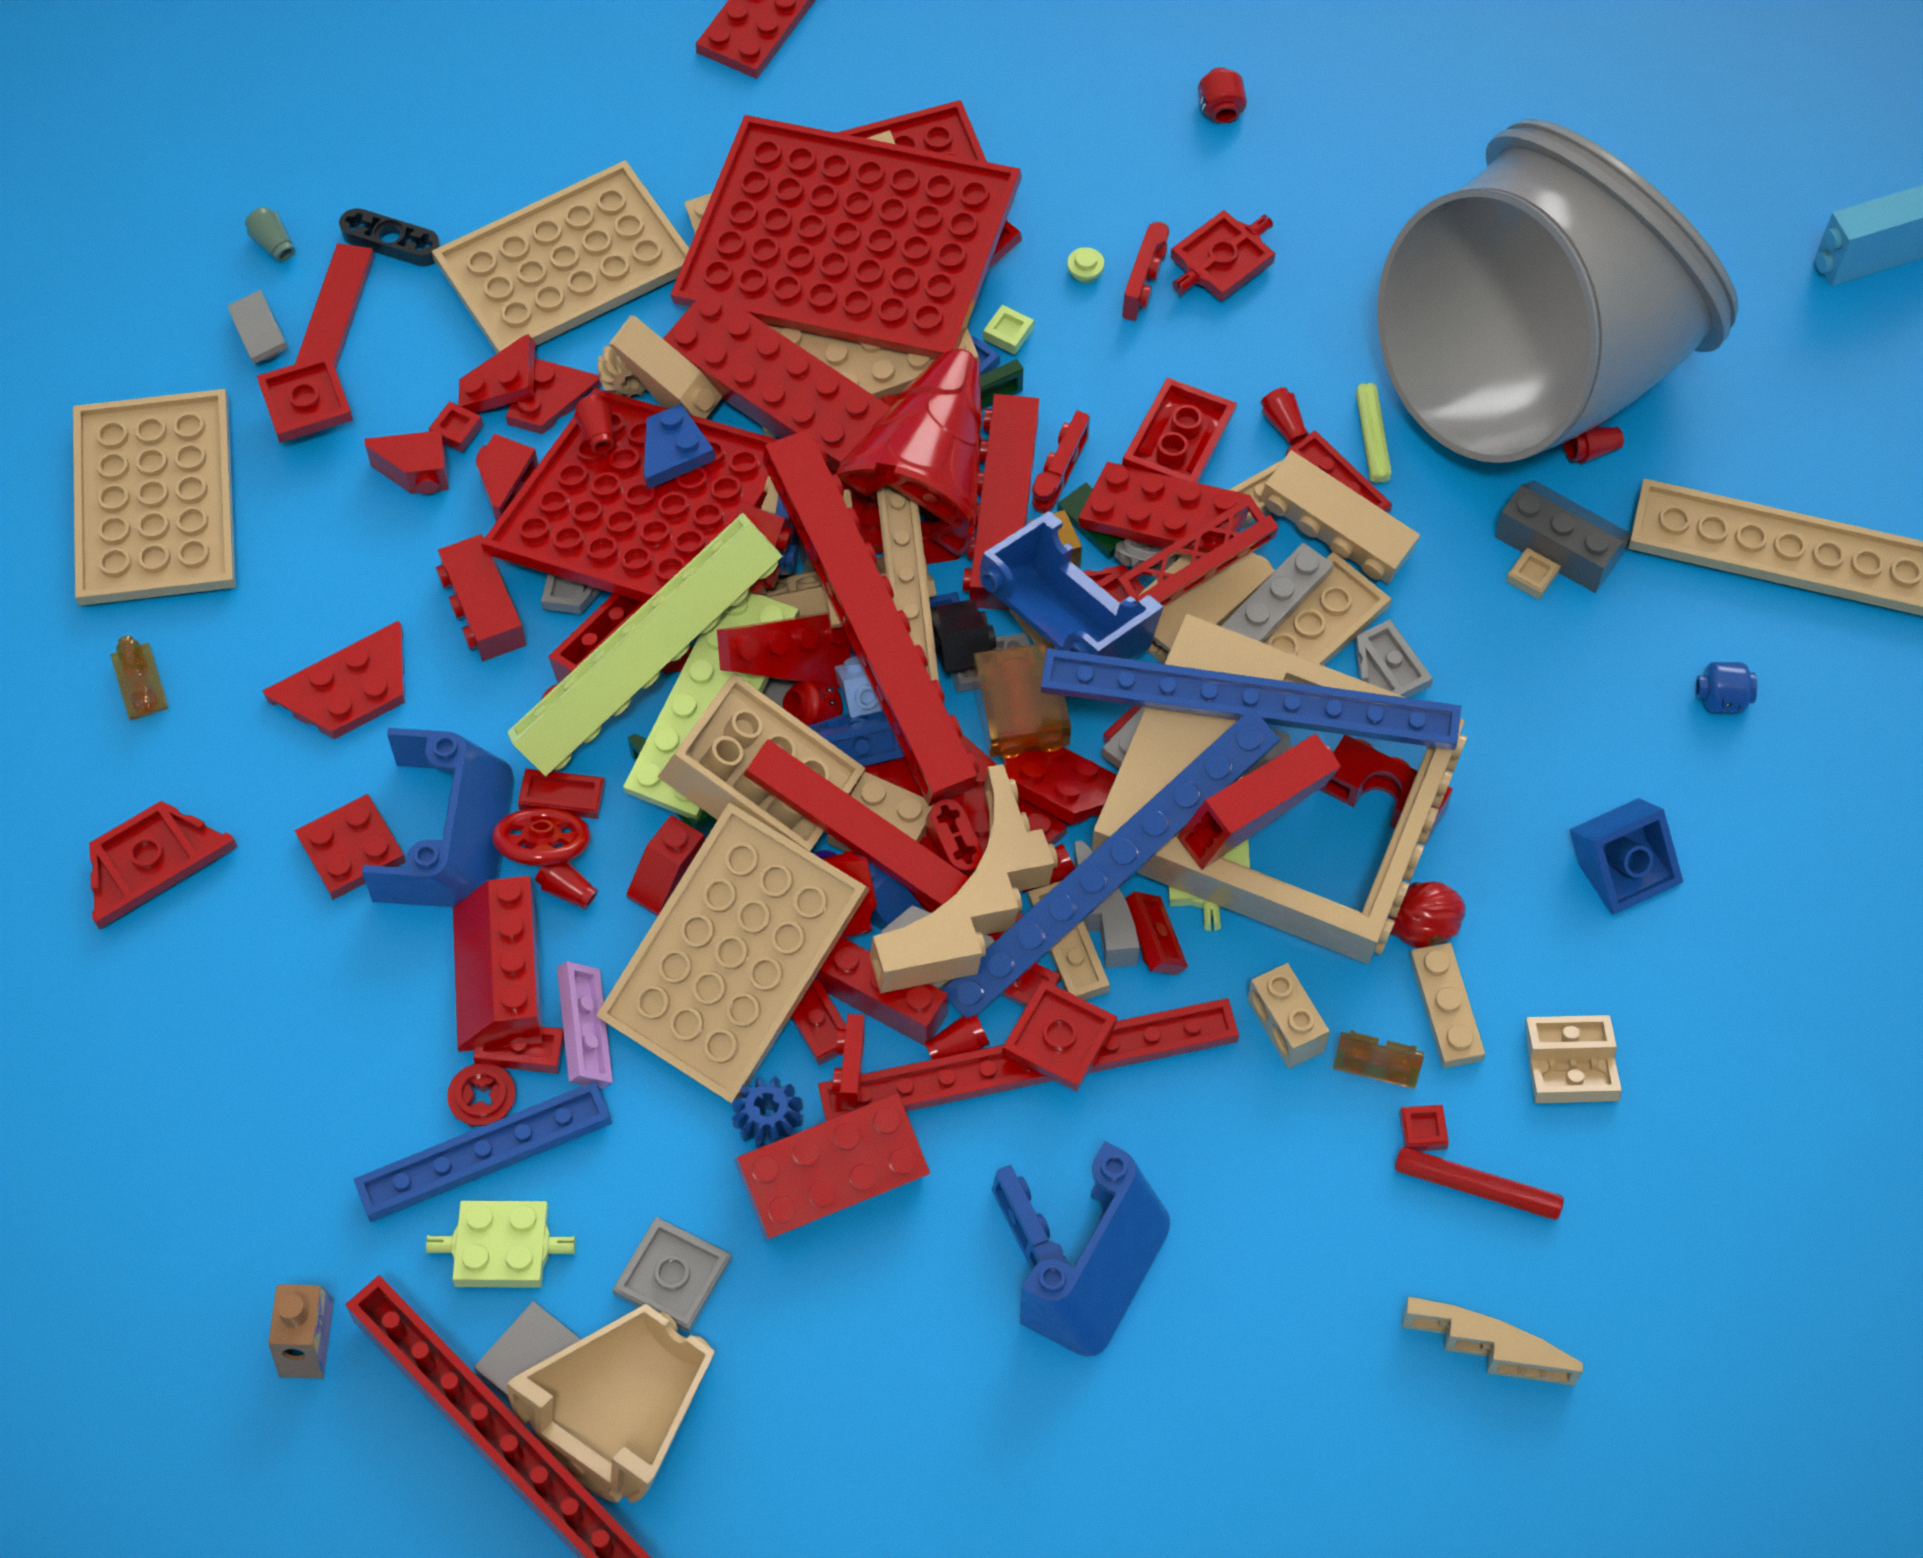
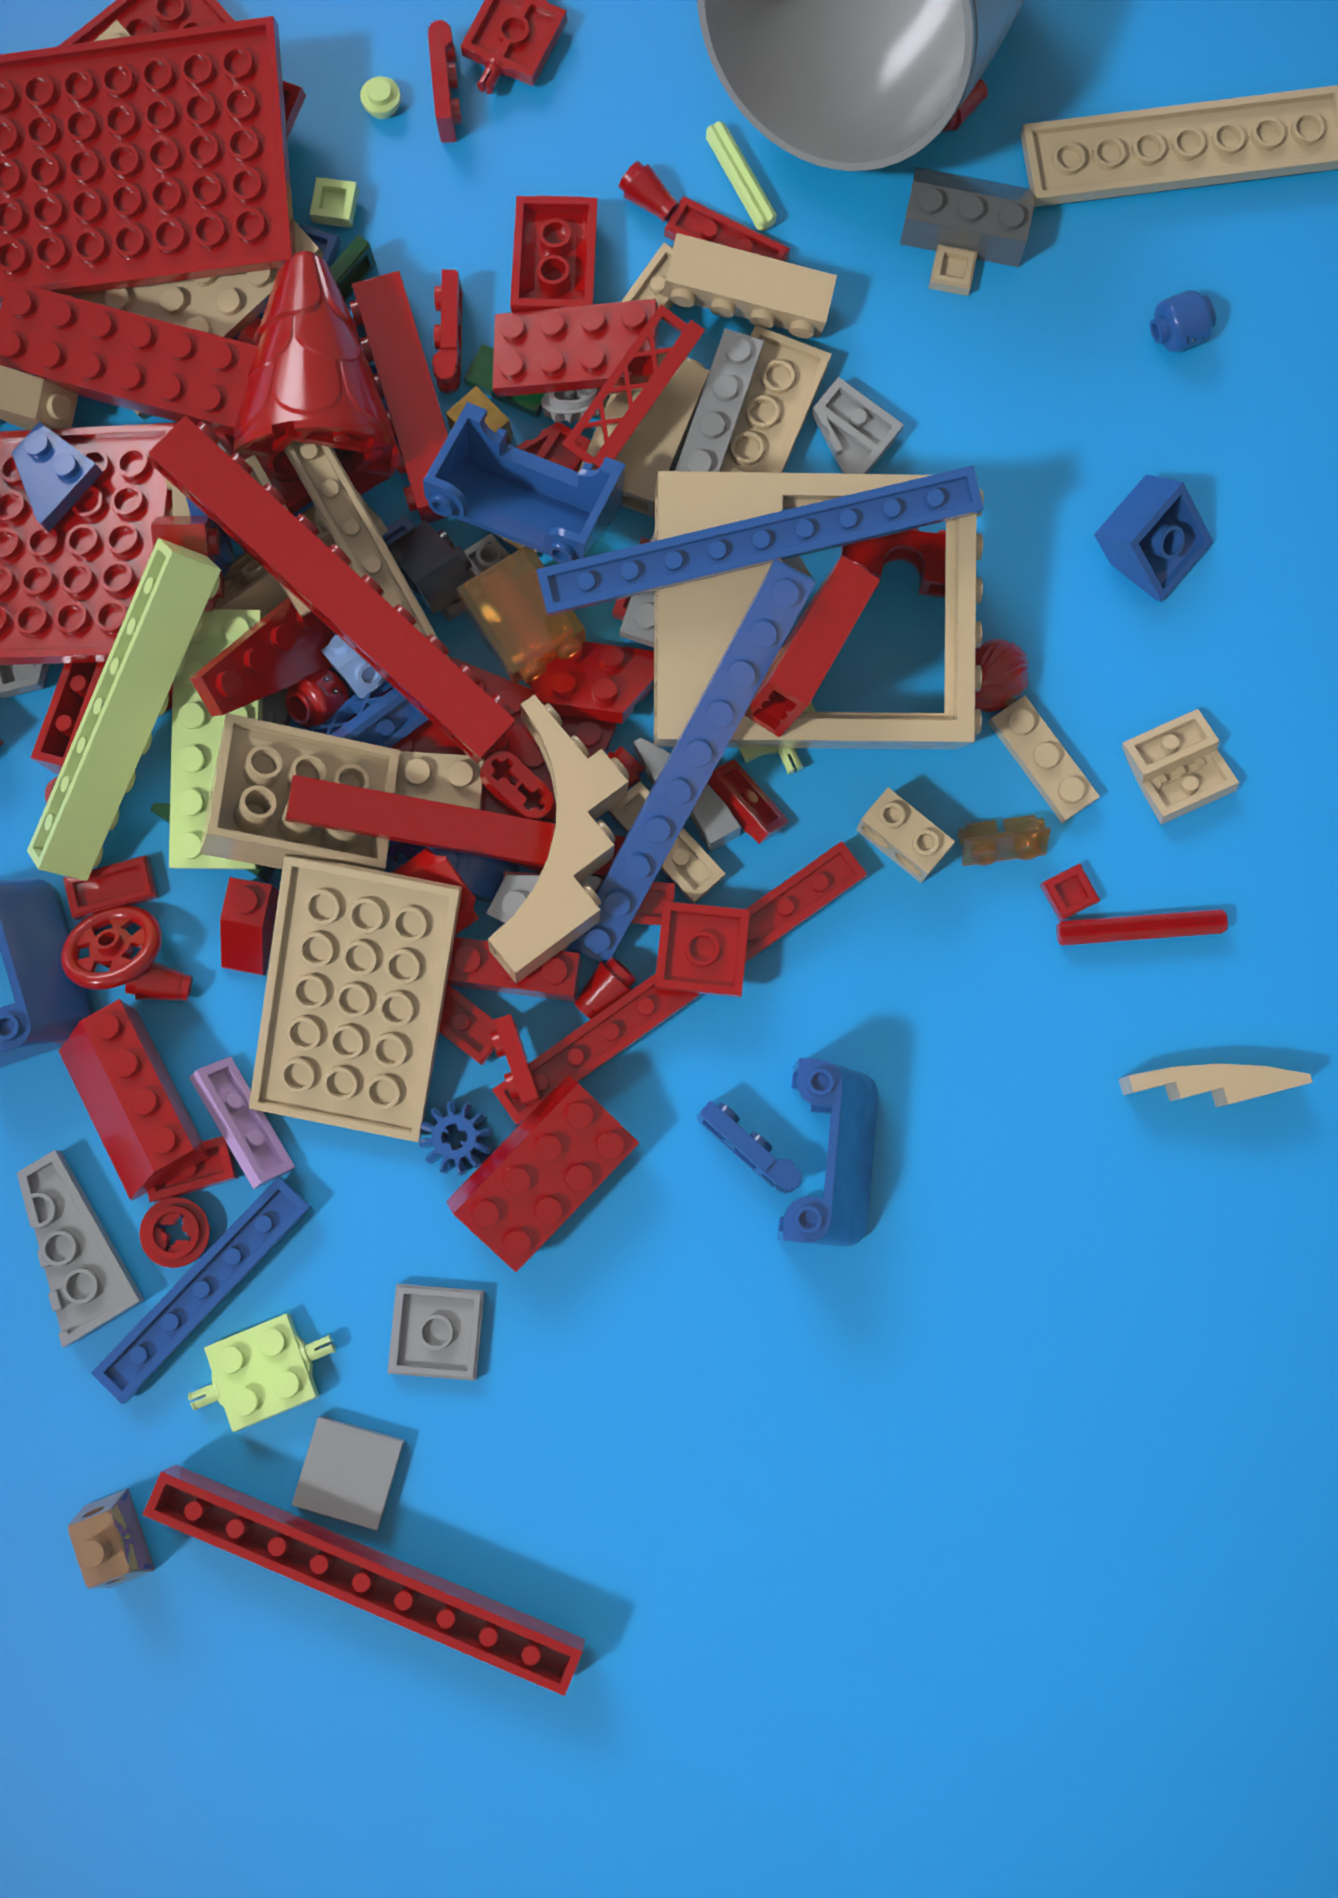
camera: 20 degrees left, 20 degrees up
(387, 1084) = (79, 1259): none -> light grey wing
(614, 1401) = (443, 1486): tan cone -> none

